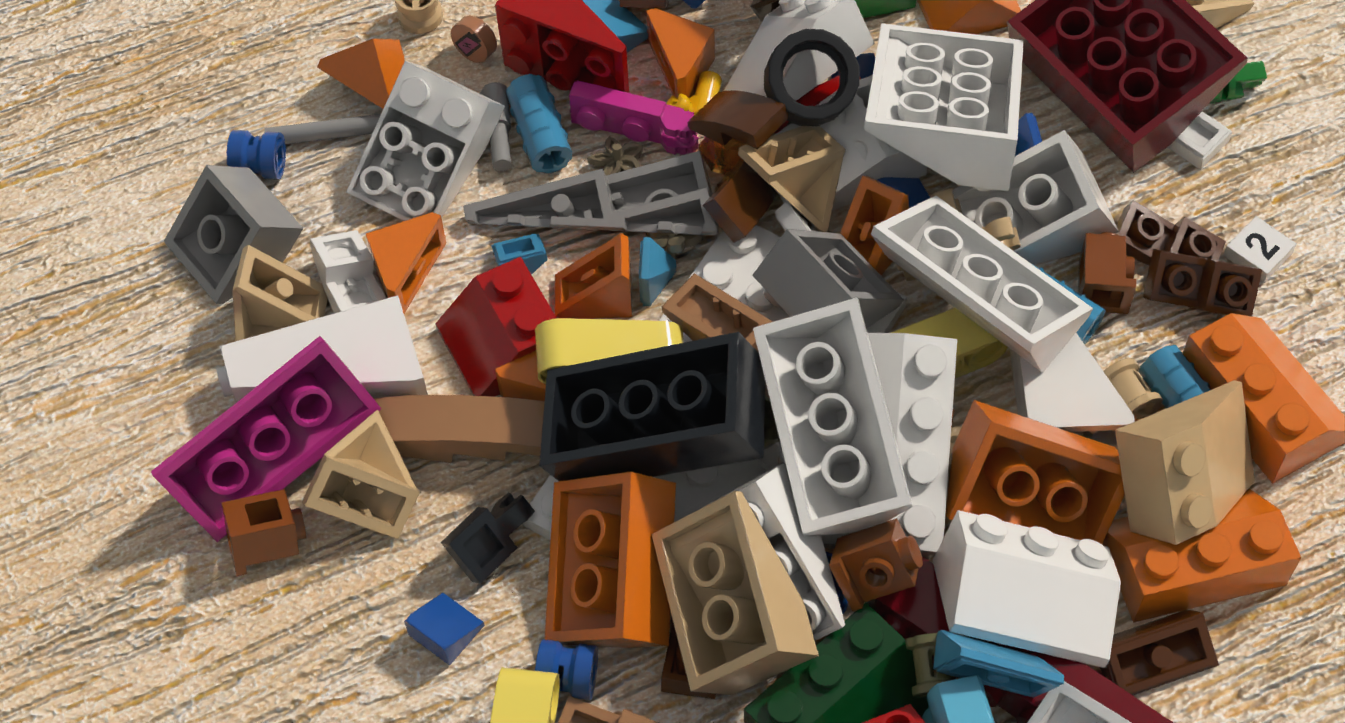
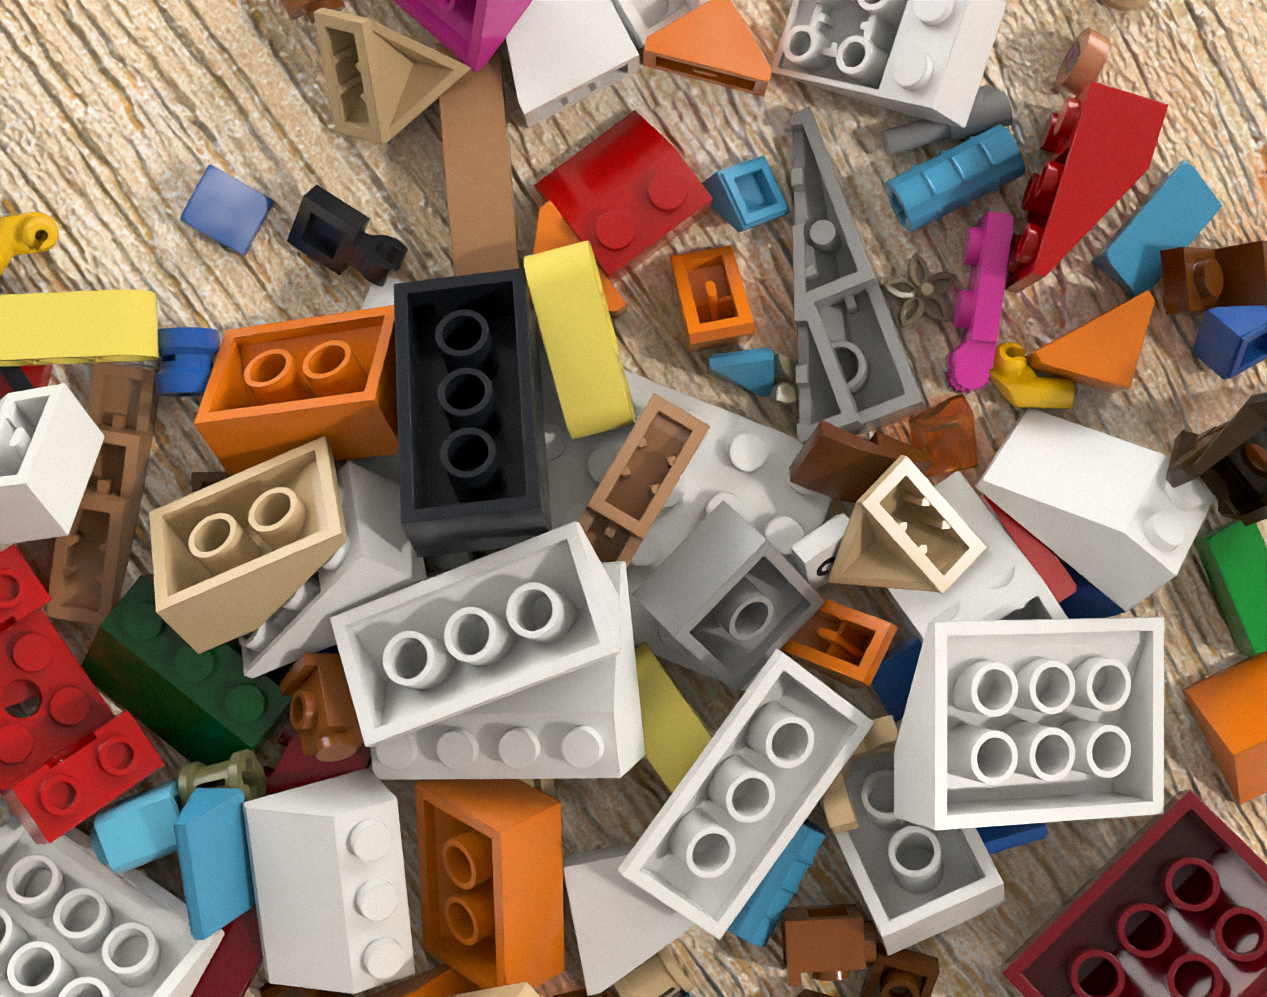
camera: 75 degrees right, 30 degrees up
(739, 116) = (963, 446): reddish brown slope -> none
(828, 44) = (997, 577): black tyre -> none

